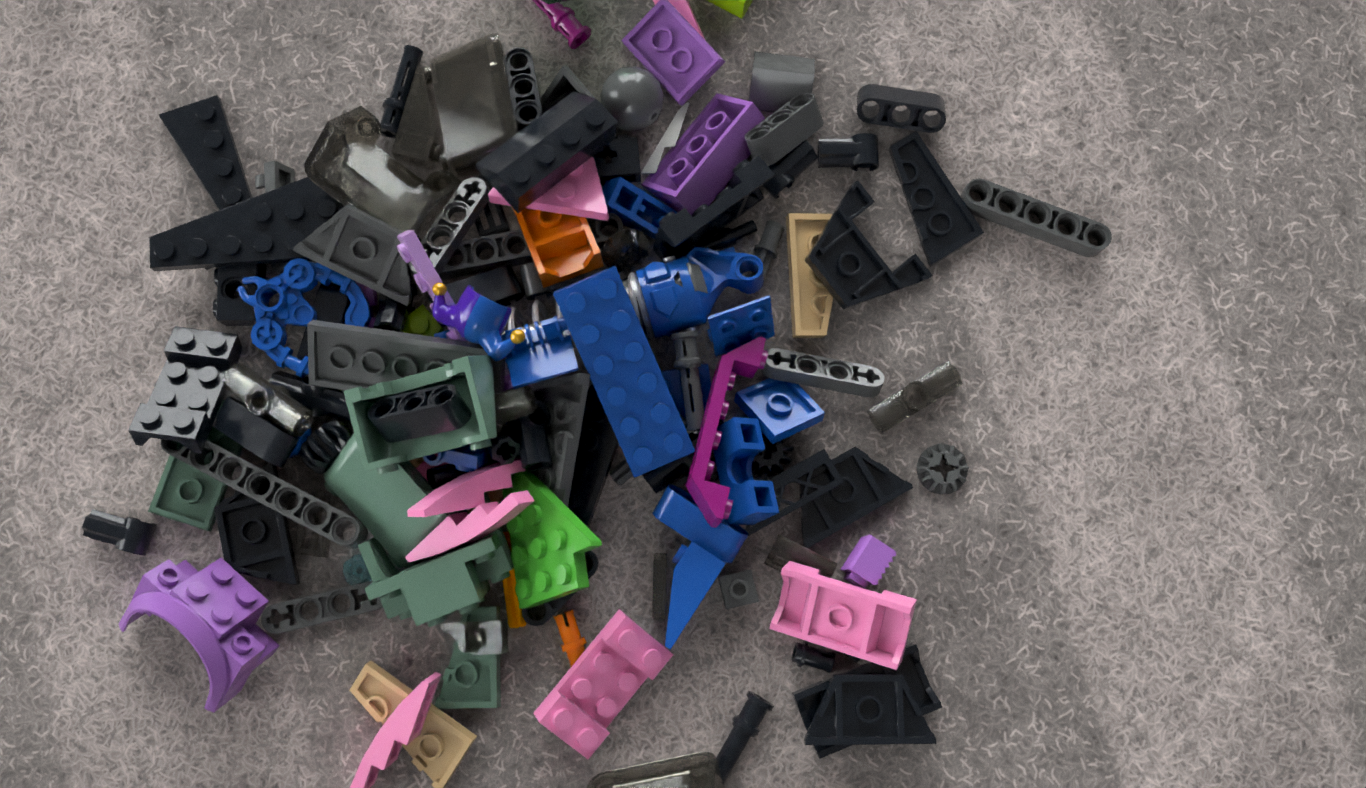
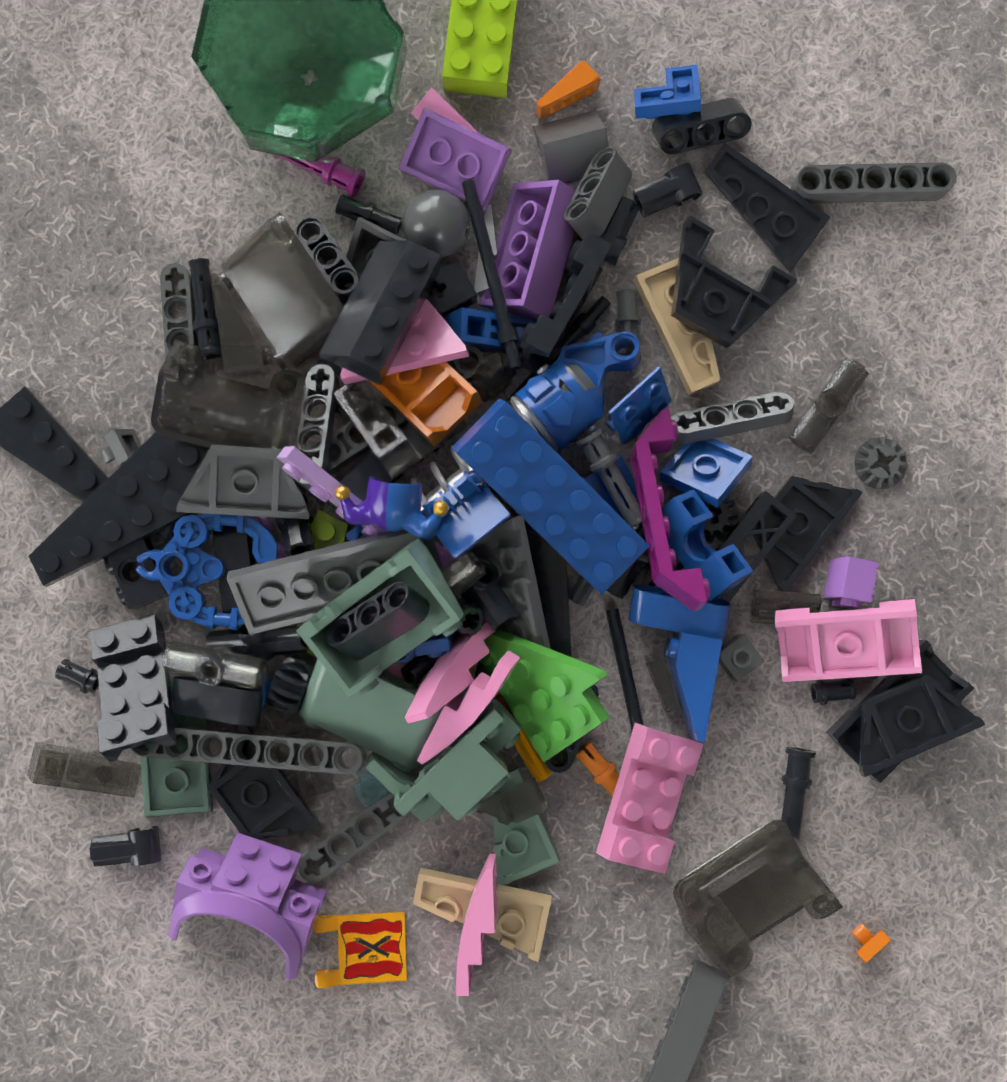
camera: 20 degrees left, 5 degrees up
(113, 446) = (82, 770): none -> clear smoke slope
(146, 361) = (78, 676): none -> black pin
(292, 715) = (368, 948): none -> flag
(366, 96) = (171, 326): none -> dark grey beam
(501, 251) = (377, 427): none -> clear smoke slope
(579, 67) = (354, 209): none -> black pin
(633, 556) = (624, 667): none -> black bar
(652, 216) = (507, 334): none -> black bar
(798, 32) = (571, 88): none -> orange slope
(891, 74) = (678, 97): none -> blue plate

